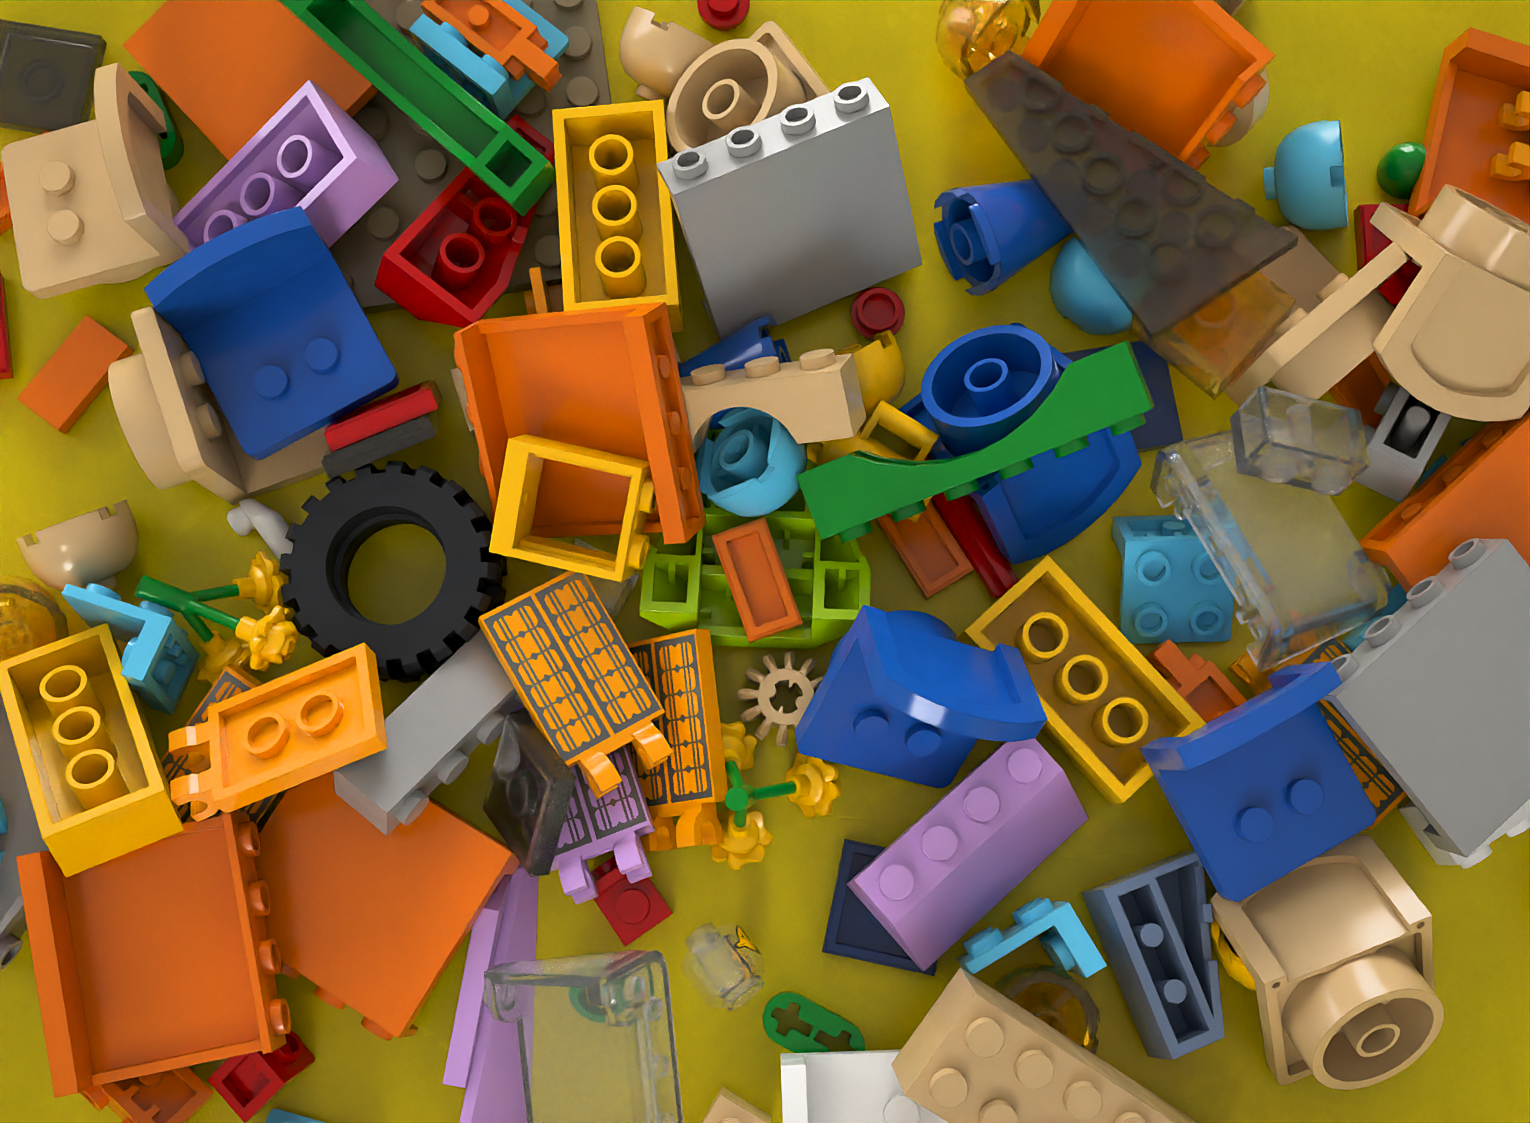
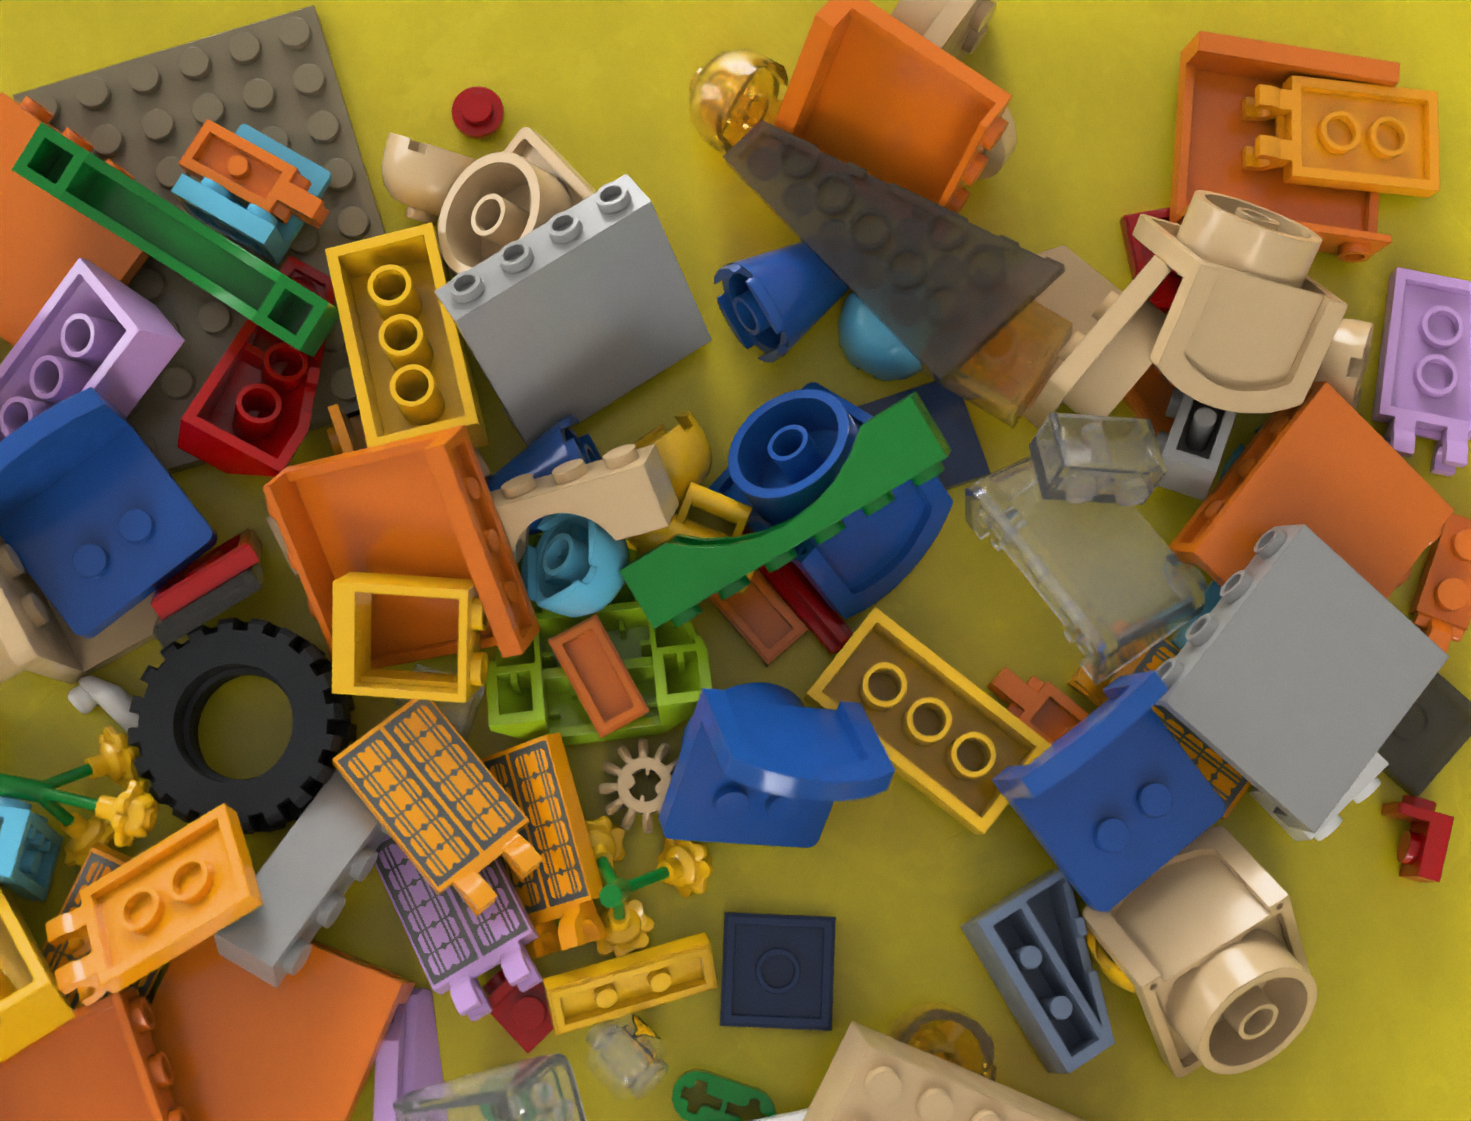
camera: 15 degrees left, 0 degrees up
(528, 794) = (409, 922): clear smoke tile -> none
(739, 893) = (630, 983): none -> yellow tile
(877, 311) = (676, 392): red plate -> none
(970, 849) = (846, 903): lavender slope -> none
(1064, 942) = (949, 978): medium azure bracket -> none
(1169, 583) = (996, 613): medium azure bracket -> none
(1310, 177) = (1072, 197): medium azure cylinder -> none
(1401, 169) = (1157, 174): green piece -> none

